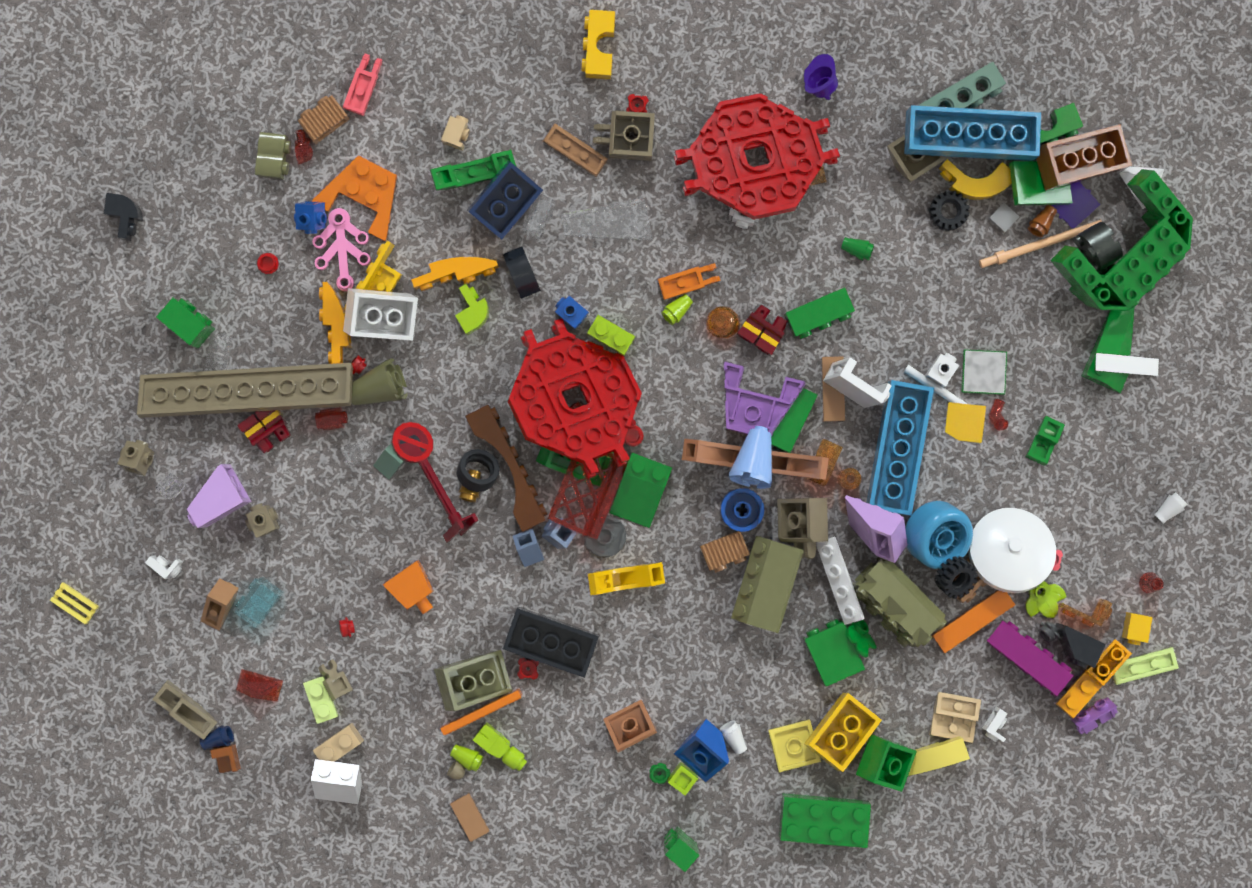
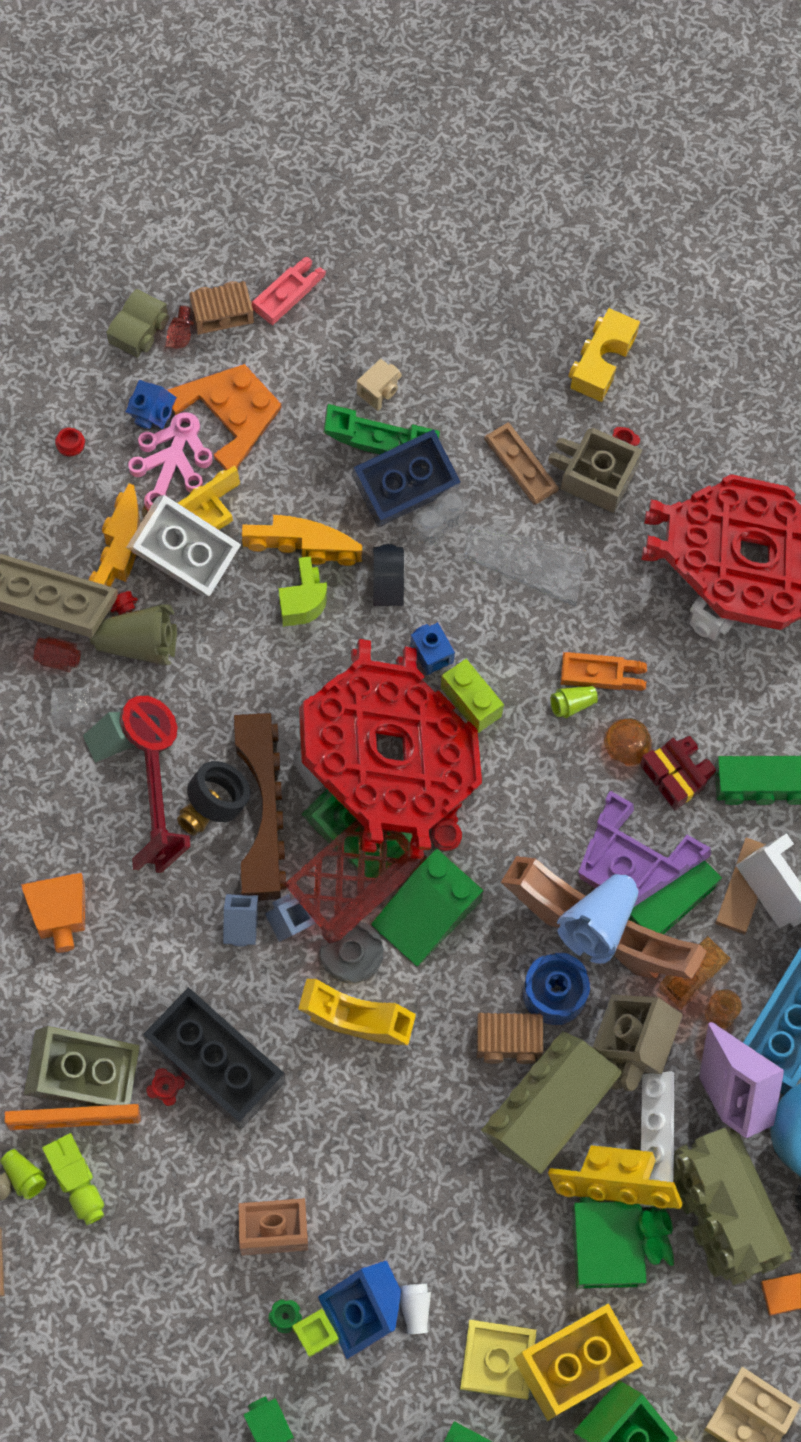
camera: 20 degrees right, 20 degrees down
(824, 613) = (616, 1176): none -> yellow bracket

